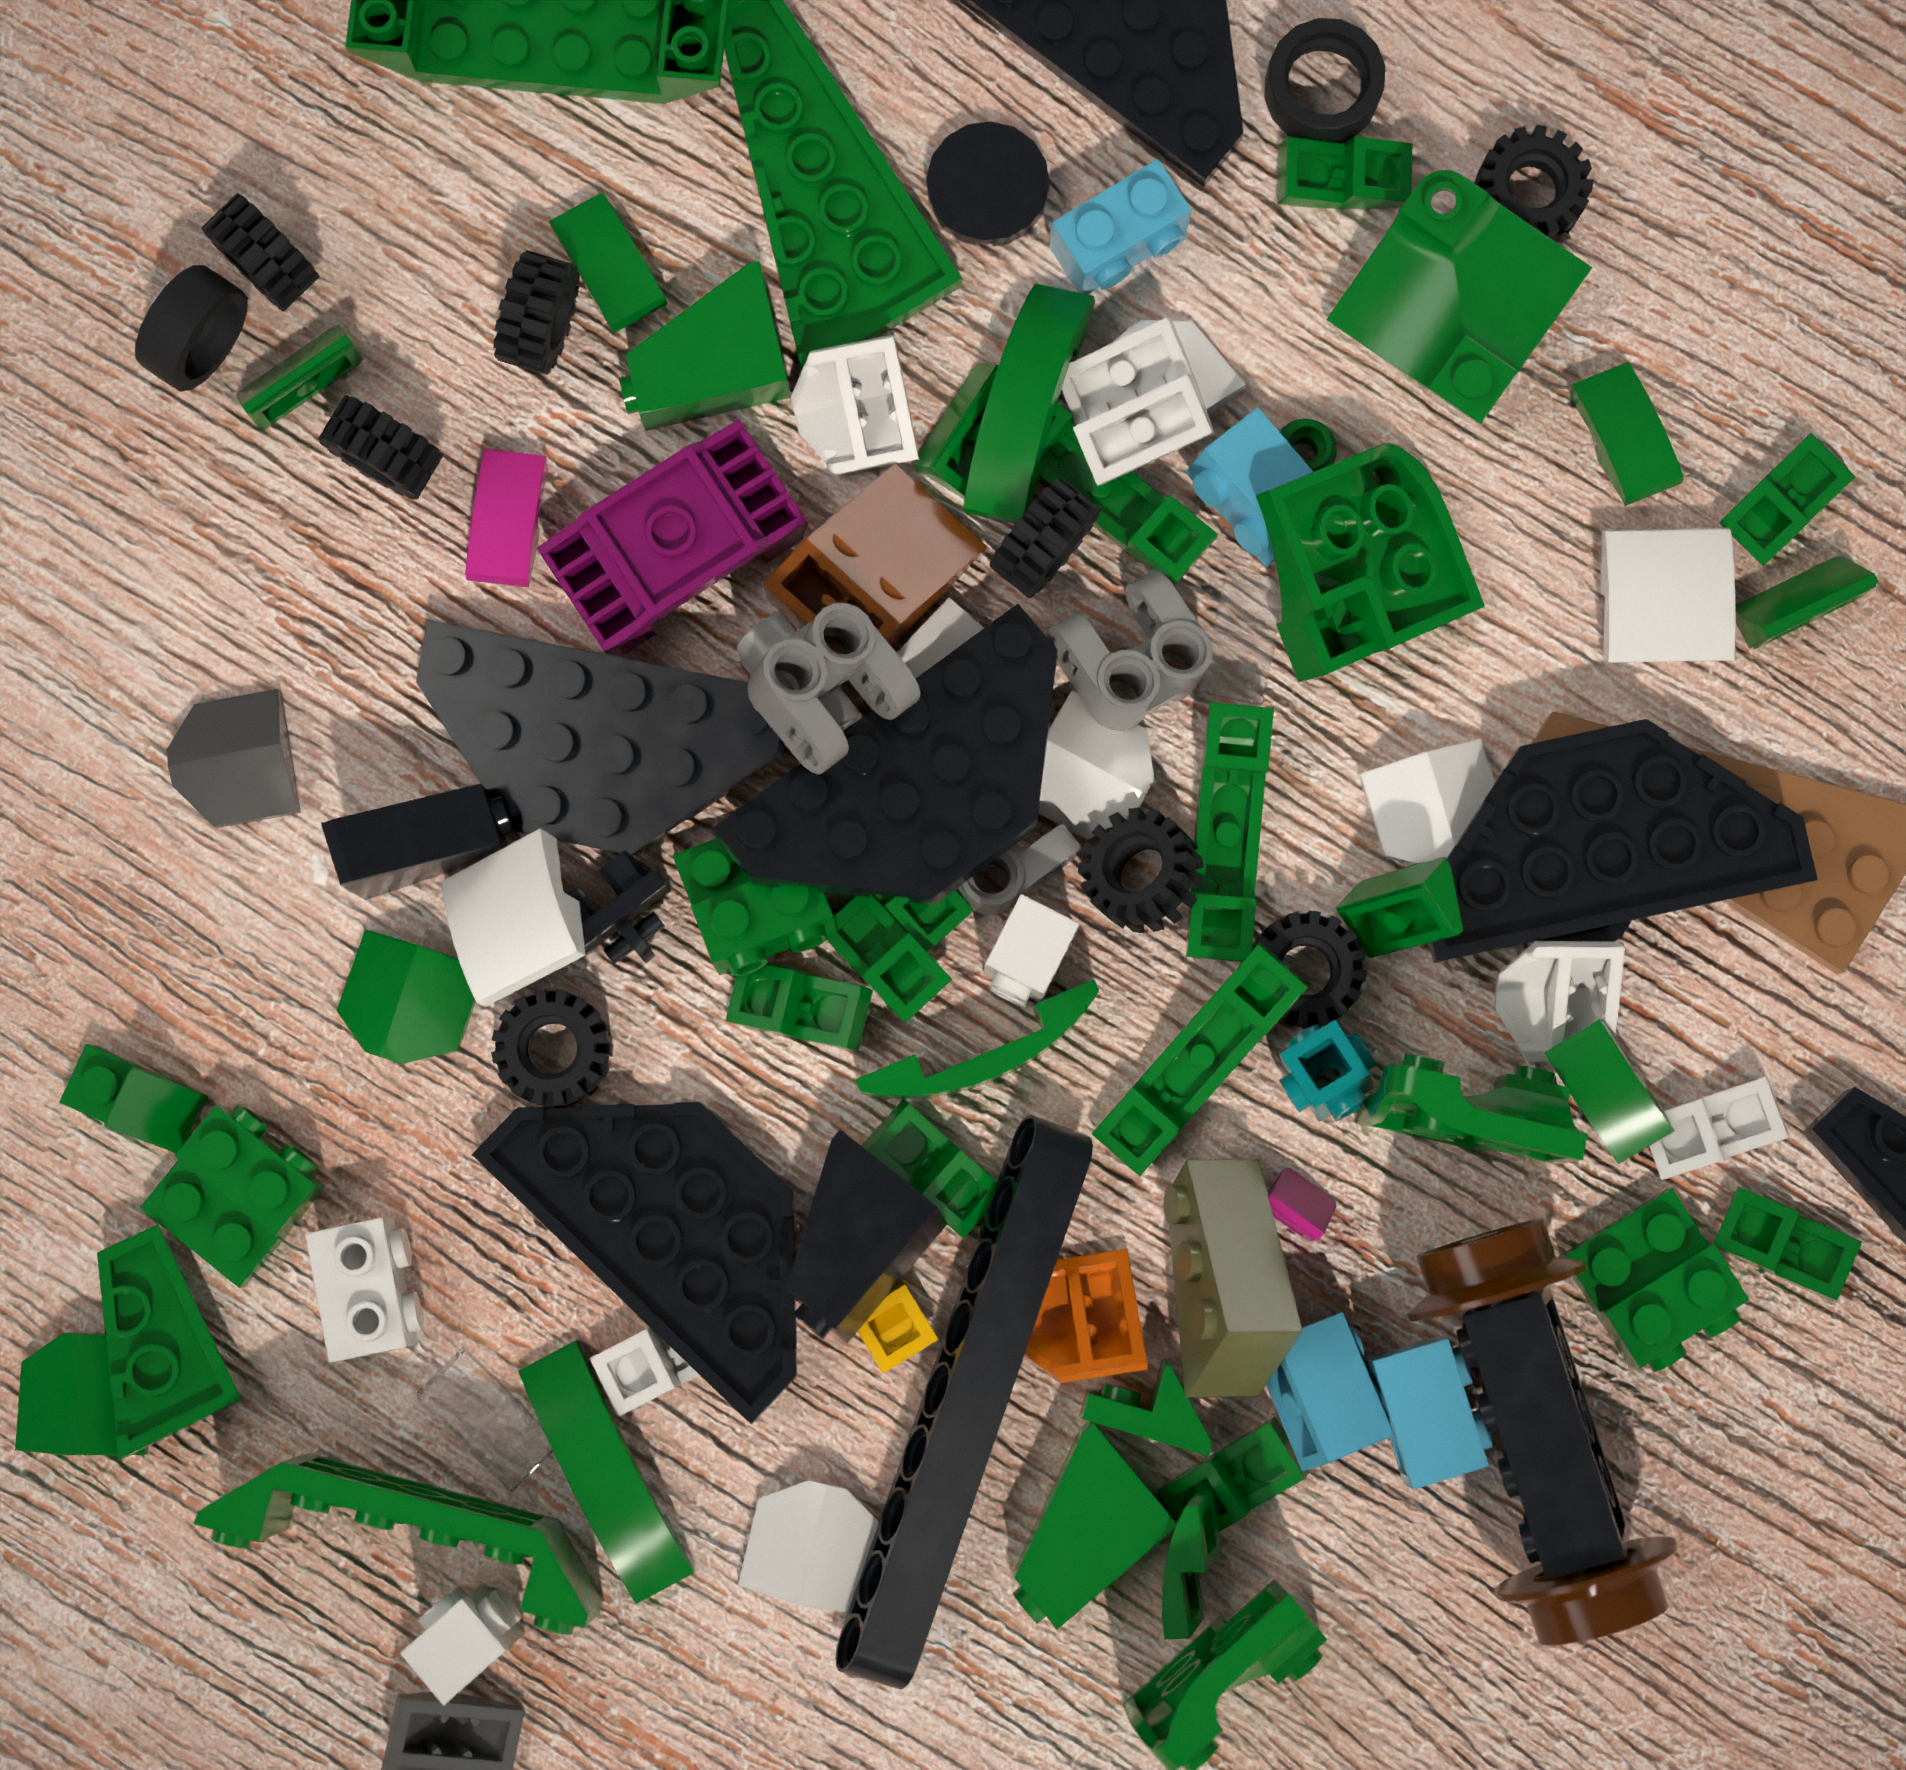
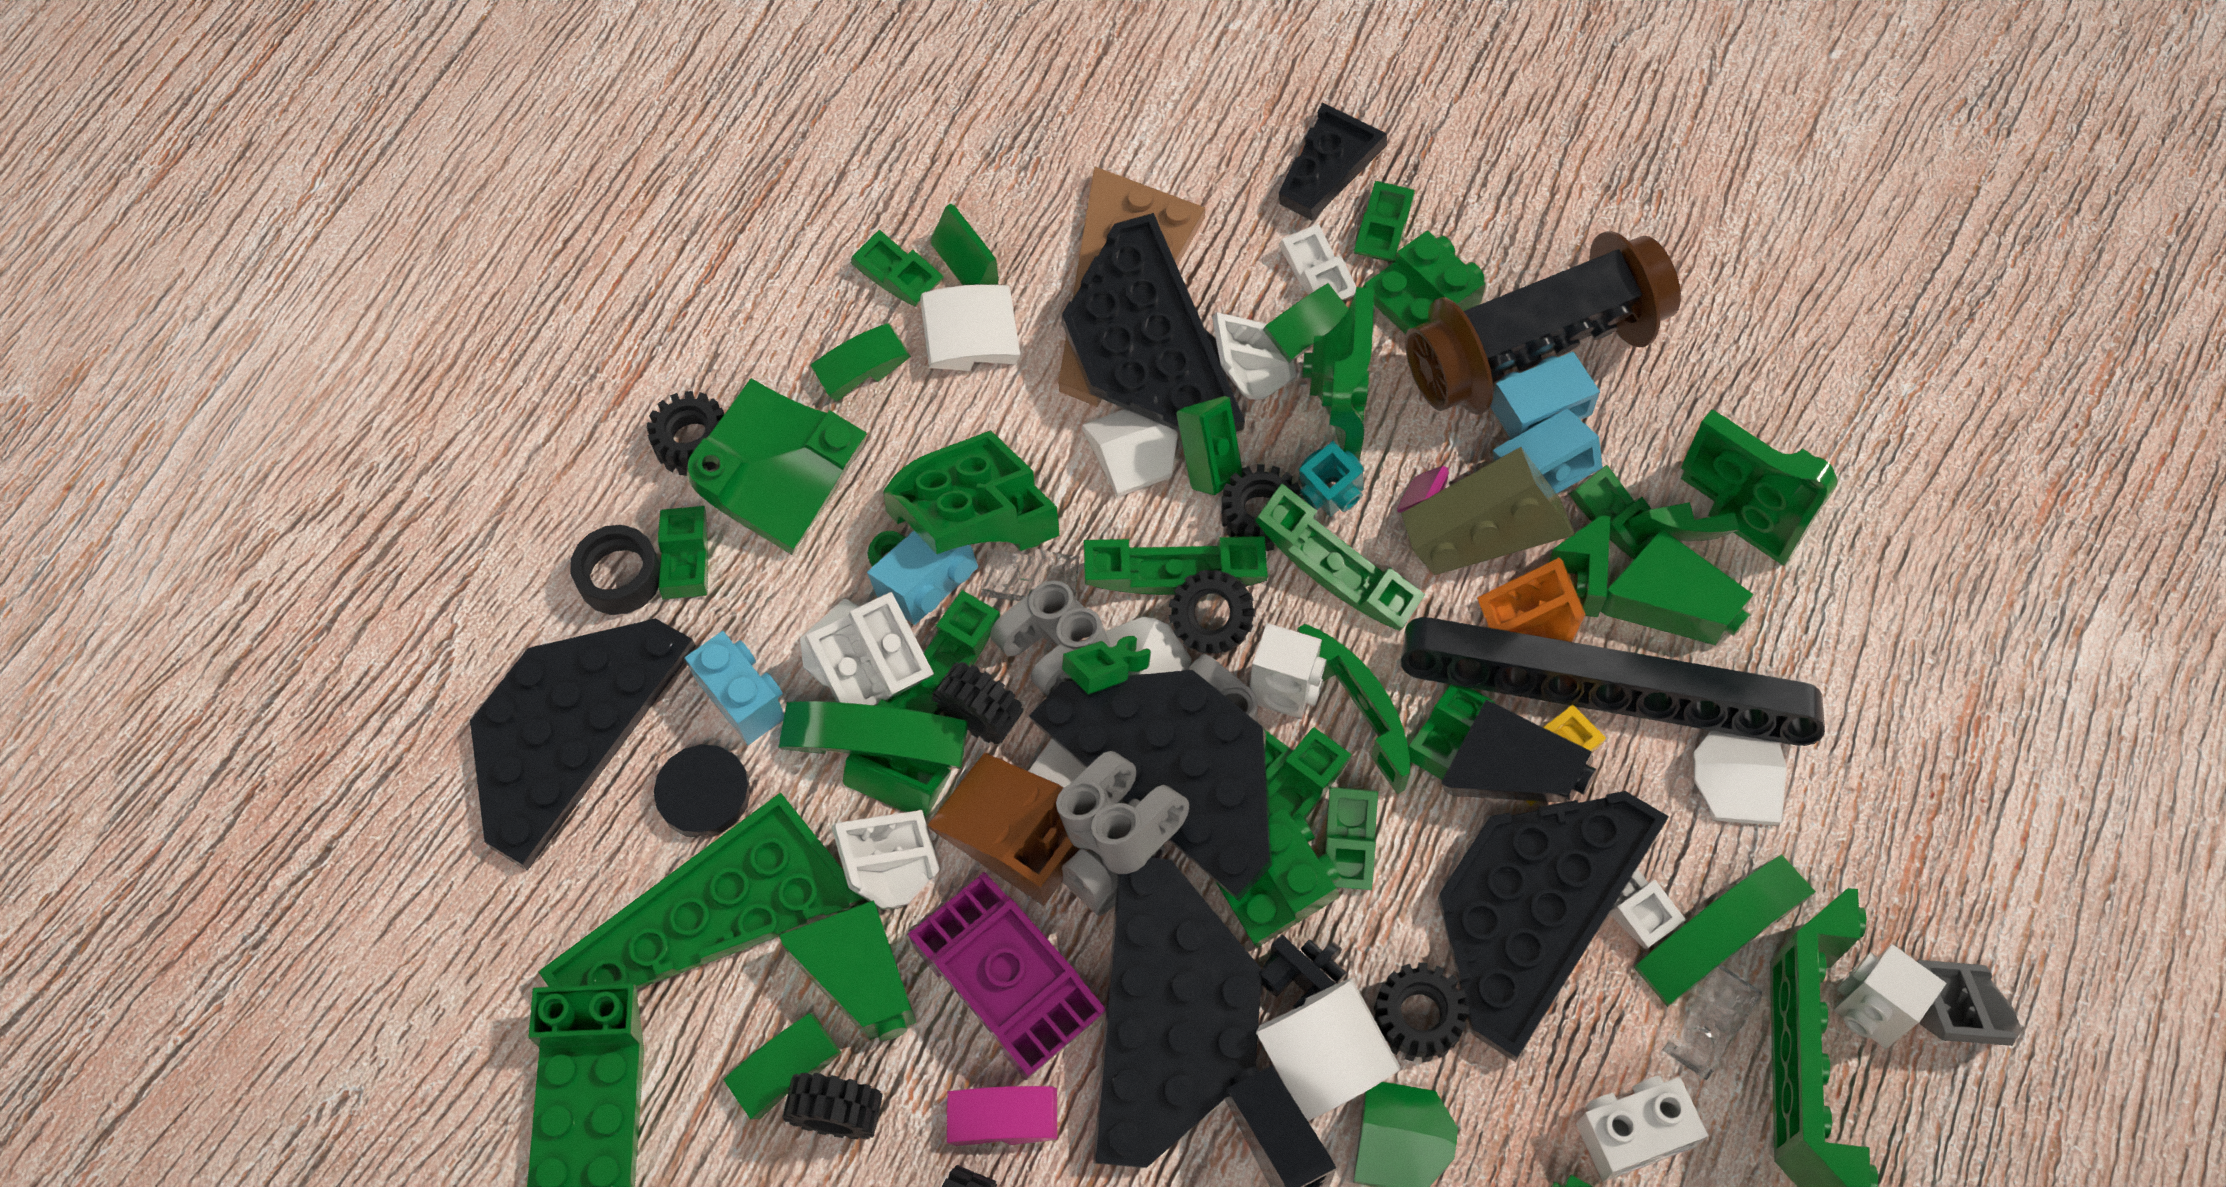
camera: 95 degrees left, 20 degrees down
(1063, 701) = (1104, 666): none -> green plate

